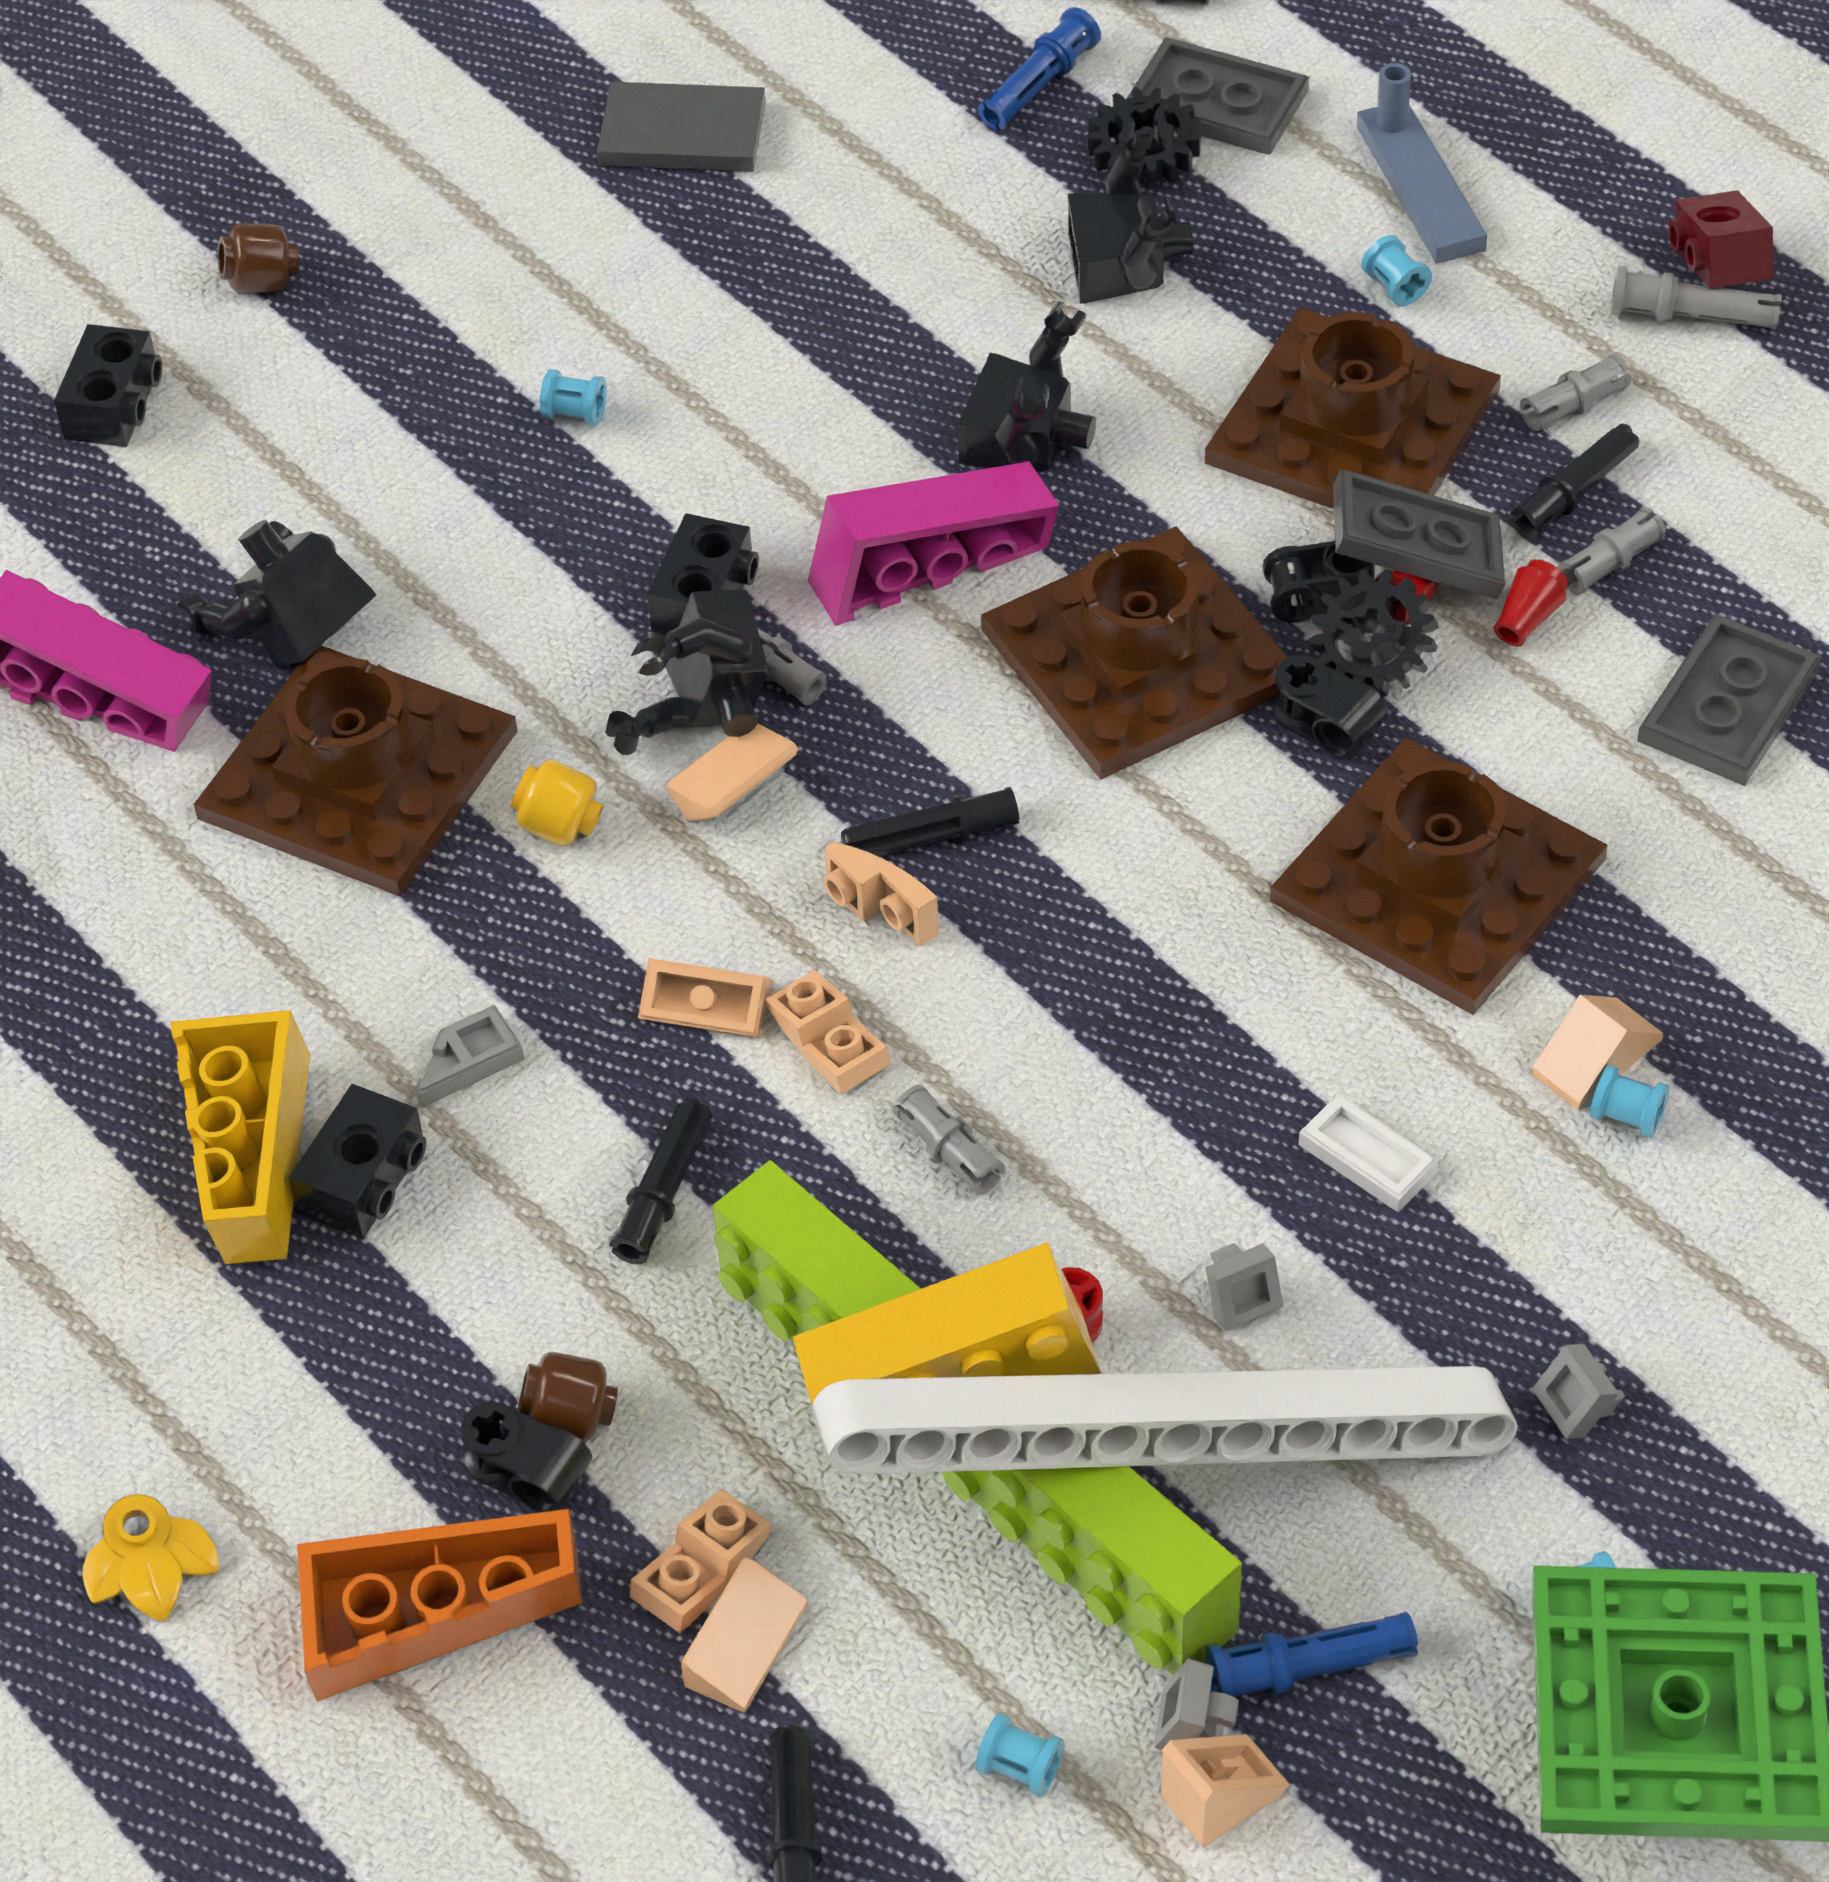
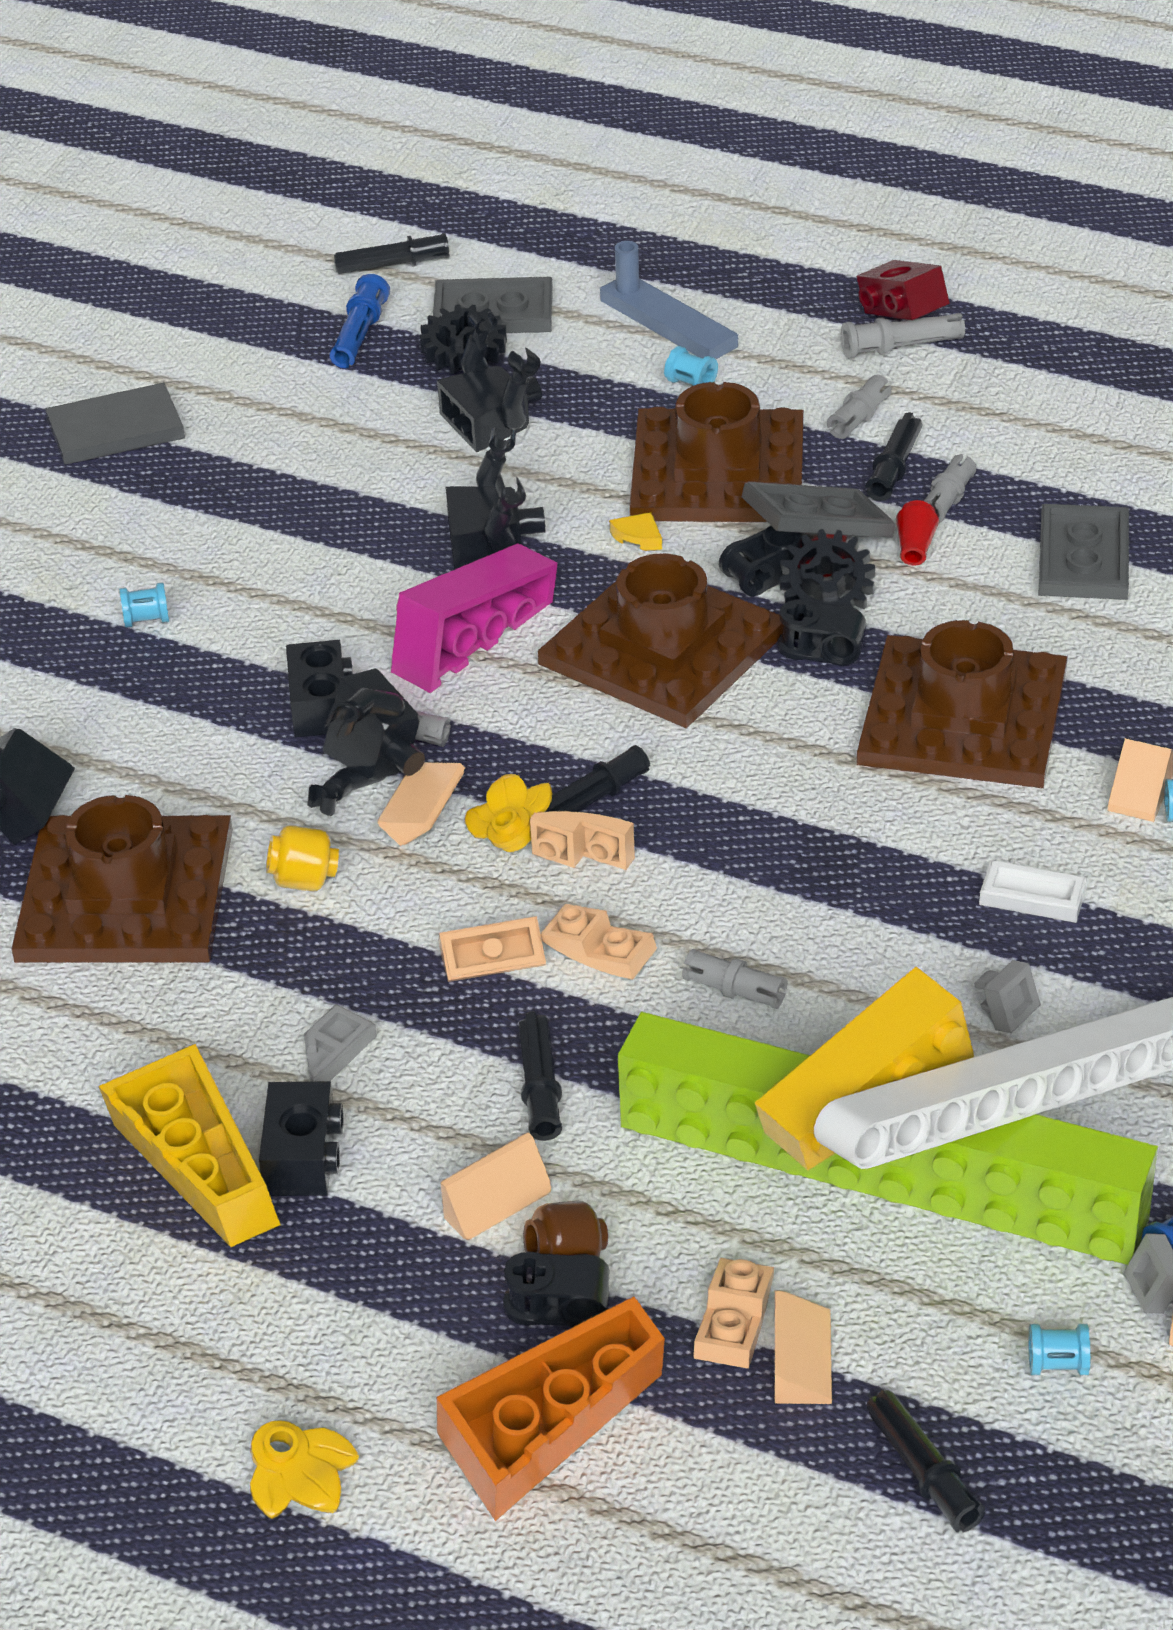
camera: 25 degrees left, 10 degrees down
(532, 1304) = (495, 1187): none -> light nougat slope
(820, 820) = (508, 812): none -> yellow plate
(1199, 484) = (638, 530): none -> yellow tile

